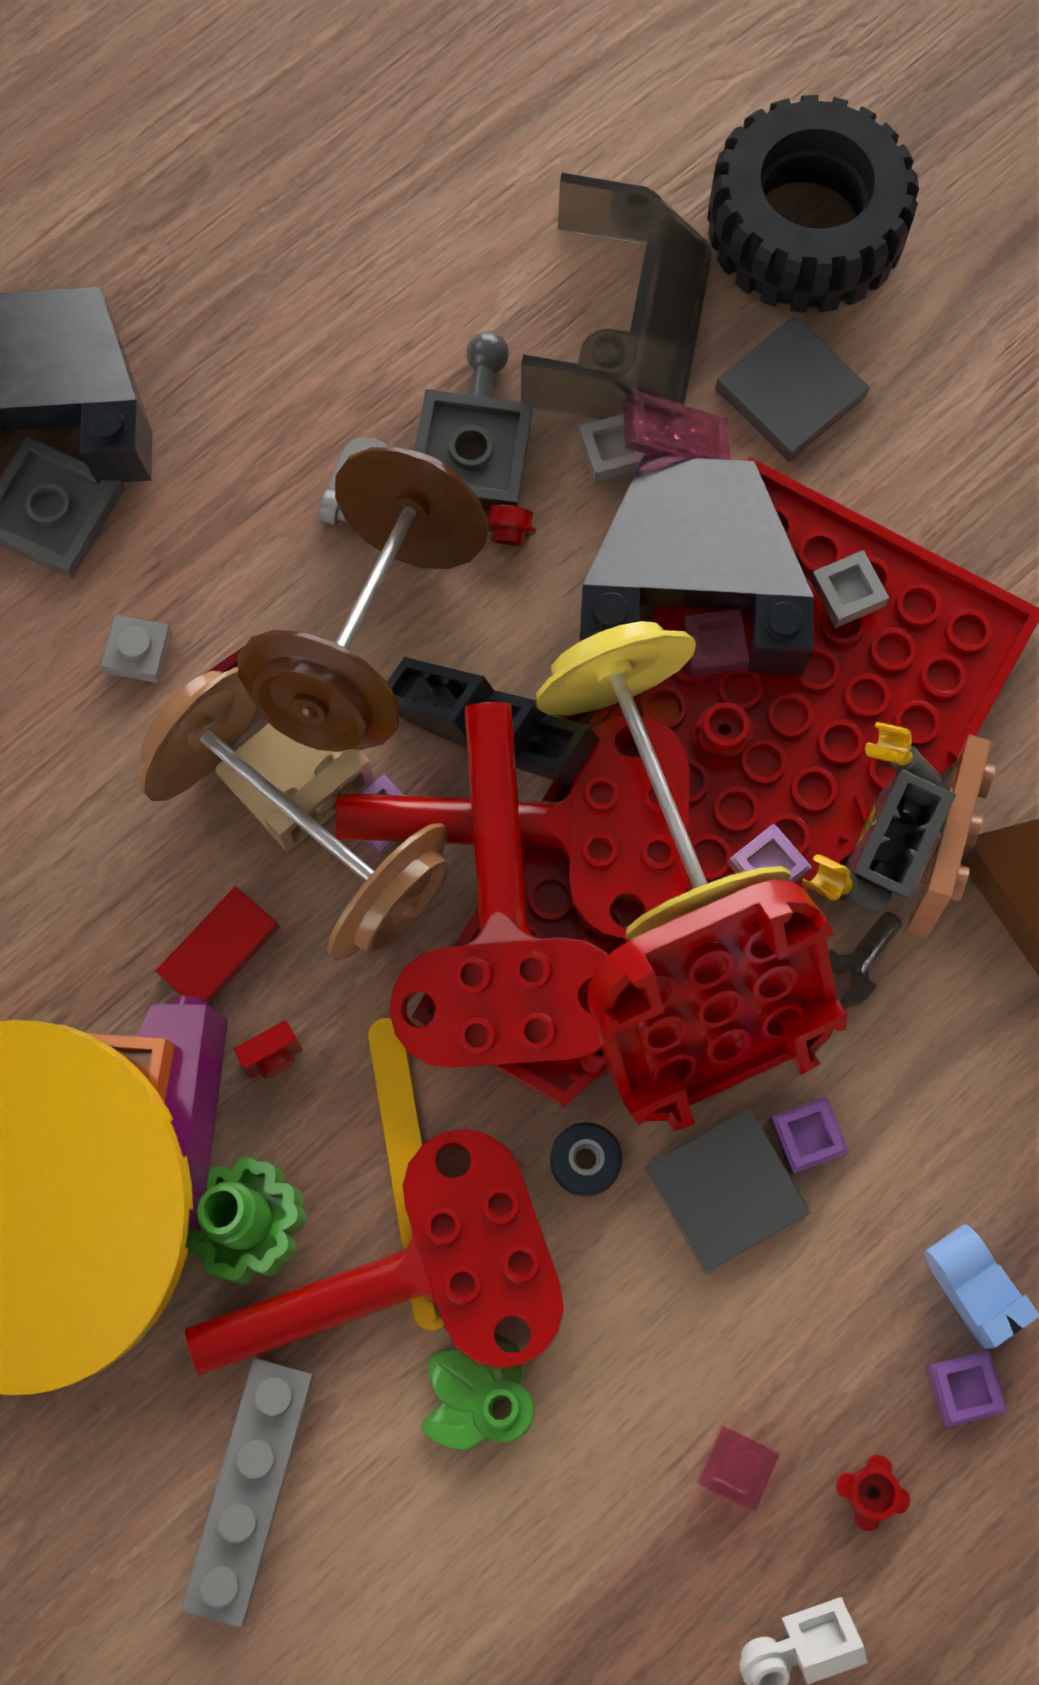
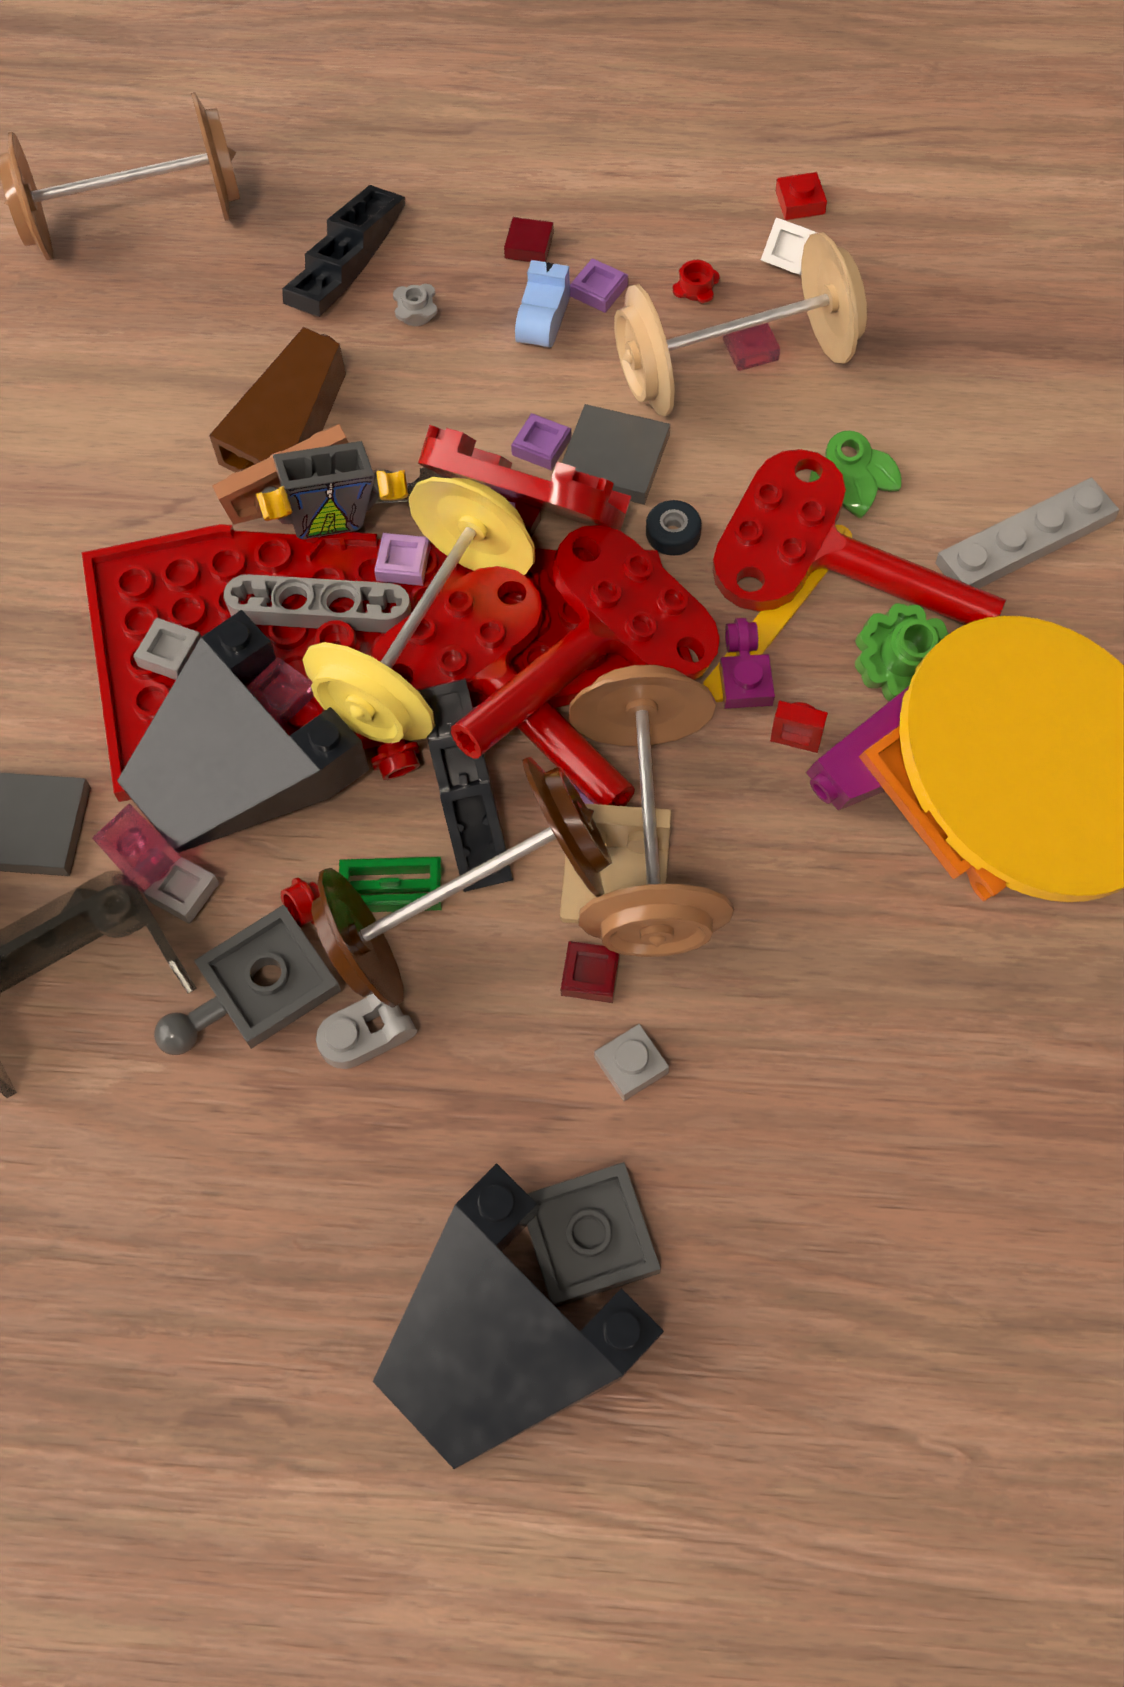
camera: 130 degrees left, 10 degrees down
(218, 947) = (770, 819): red tile -> none
(364, 1061) = (745, 677): none -> magenta plate
(434, 638) = (393, 866): none -> green tile
(786, 751) = (319, 596): none -> light grey beam
(794, 1291) = (832, 301): none -> tan axle

